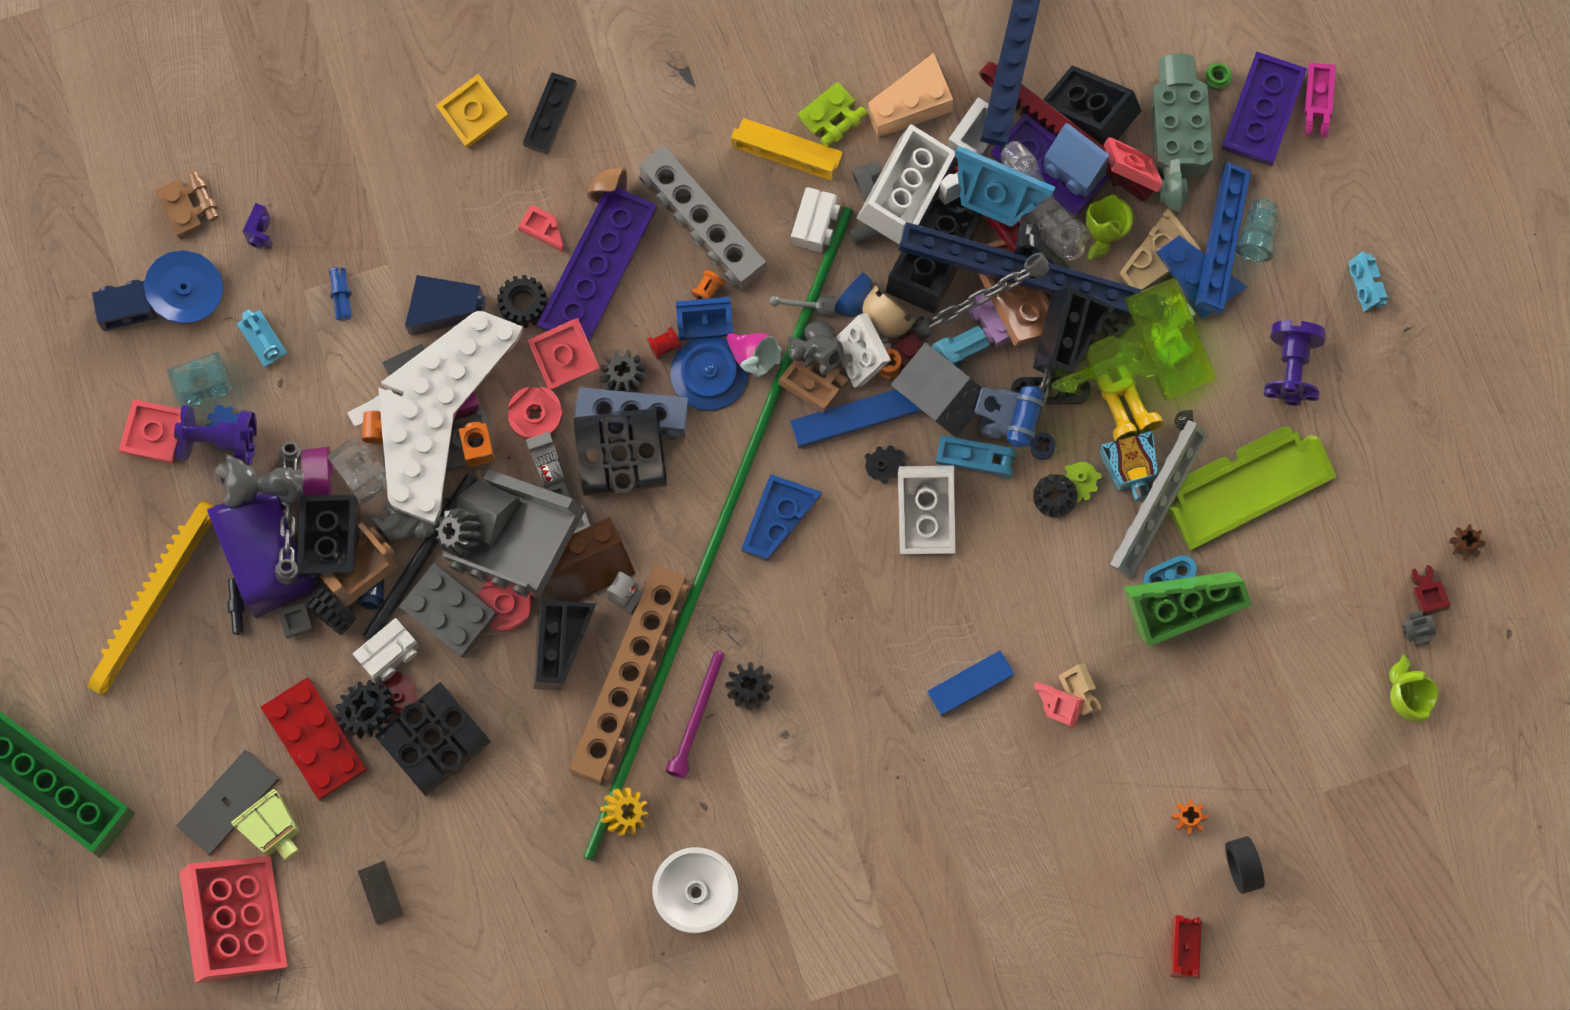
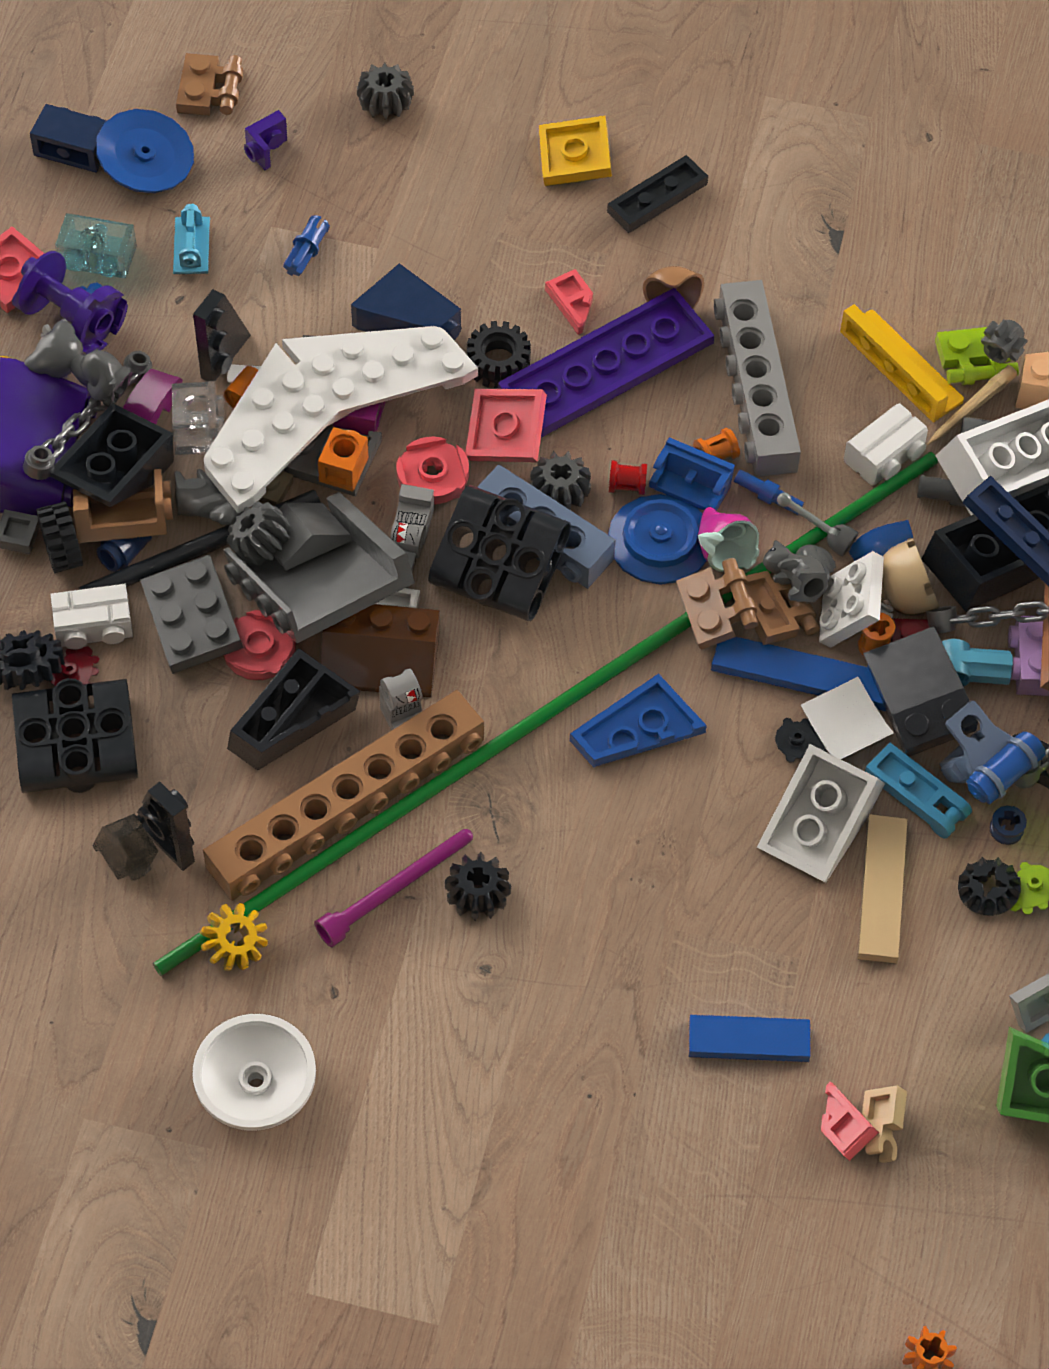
camera: 25 degrees right, 15 degrees down
(311, 131) = (385, 90): none -> dark grey gear
(335, 406) = (218, 335): none -> black wing
(515, 786) = (126, 848): none -> clear smoke brick
(535, 765) = (167, 824): none -> black wing
(758, 298) = (767, 491): none -> blue bar
(775, 411) = (706, 607): none -> medium nougat plate
(848, 101) = (1004, 341): none -> dark grey gear
(857, 135) = (994, 386): none -> tan bar
(904, 434) = (846, 719): none -> white sticker
(992, 535) = (882, 889): none -> tan tile

